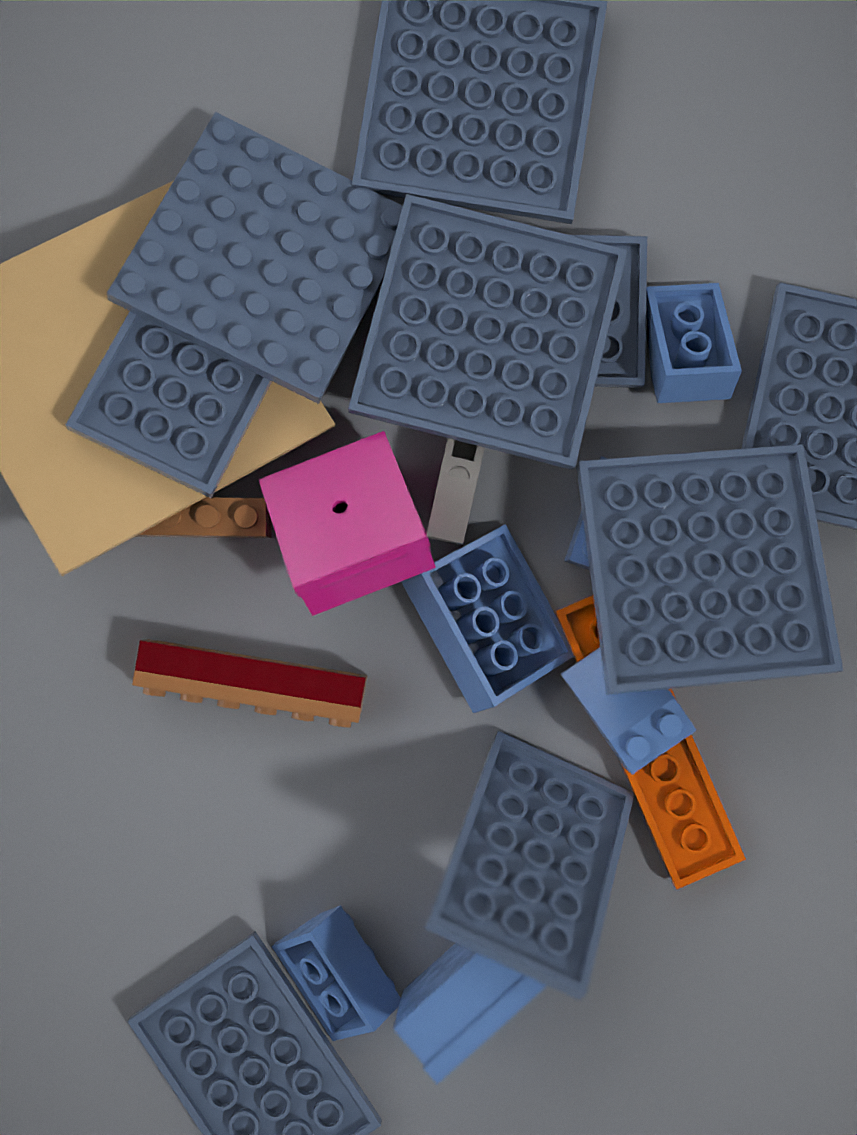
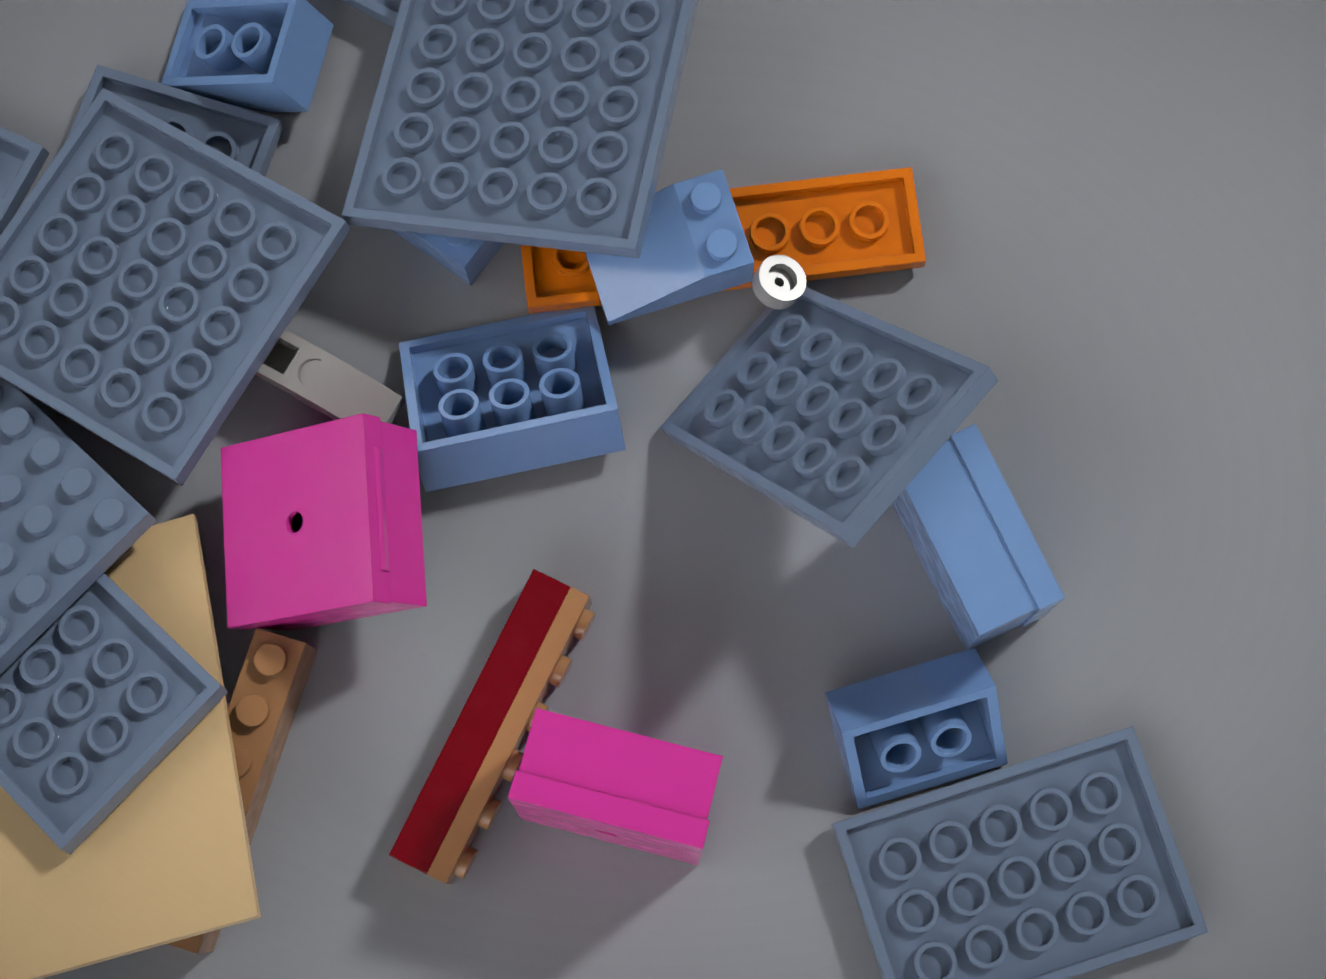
camera: 65 degrees left, 10 degrees down
(221, 795) = (616, 786): none -> dark pink container
(627, 790) = (779, 282): none -> tile

